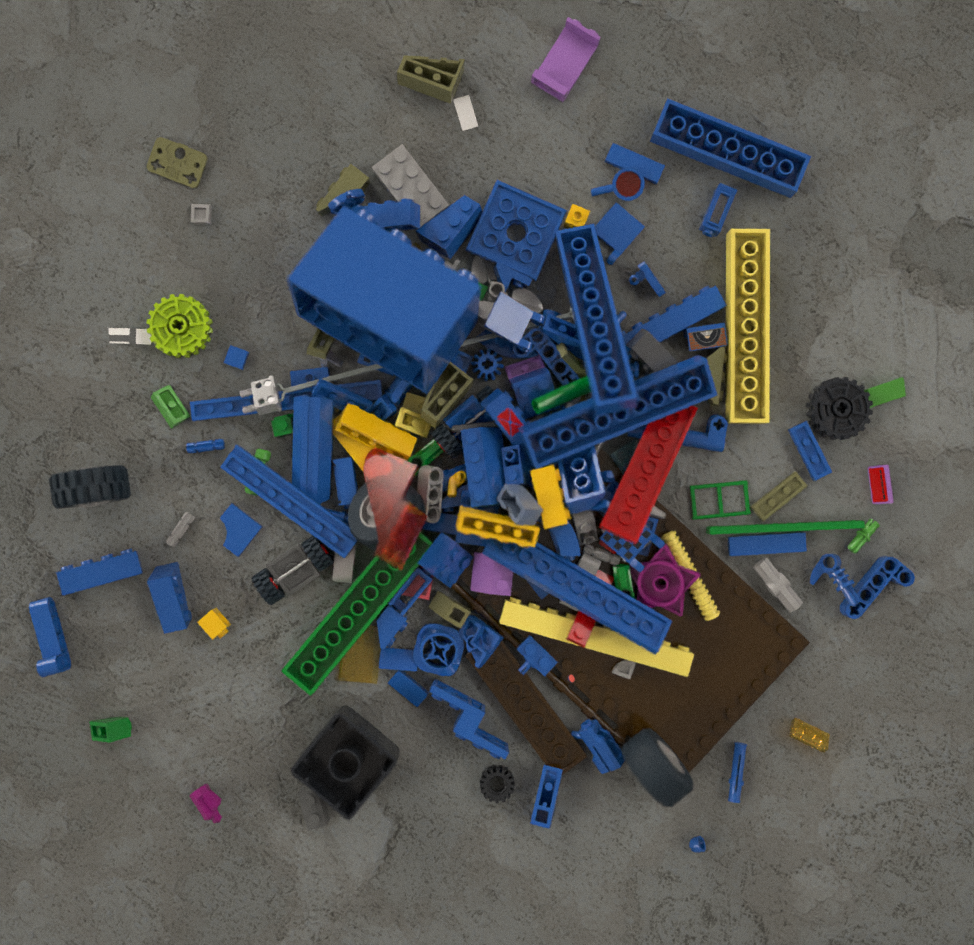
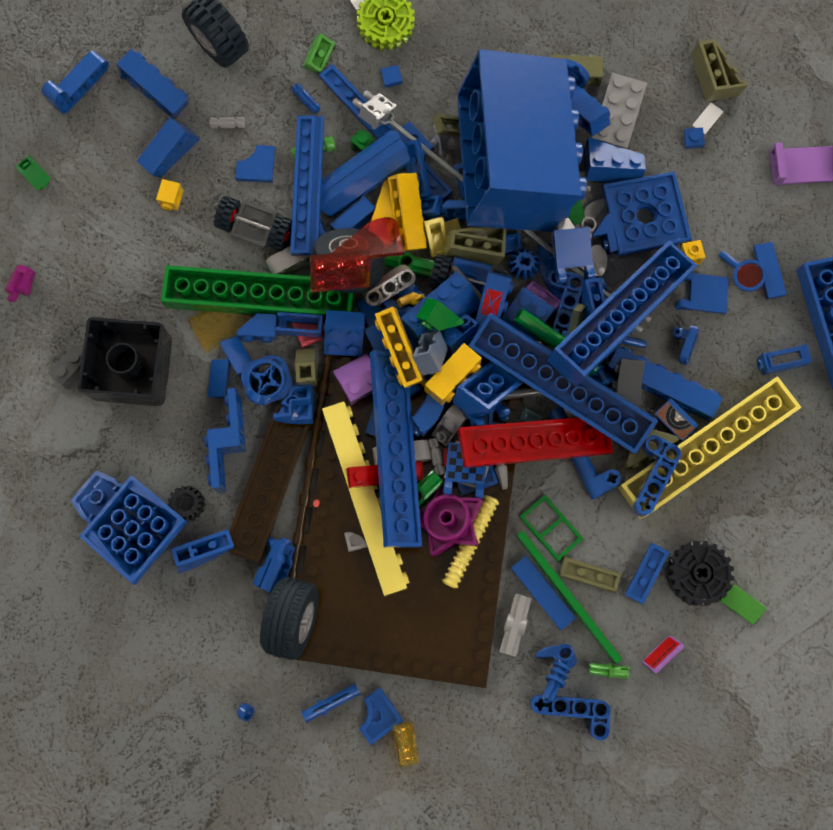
camera: 60 degrees right, 10 degrees down
(475, 138) = (693, 138): none -> blue plate
(482, 846) = (126, 523): none -> blue wedge
(493, 477) = (437, 316): none -> green slope
(535, 657) = (313, 460): blue plate -> none
(745, 394) = (653, 477): none -> blue beam
(773, 739) = (380, 716): none -> blue tile

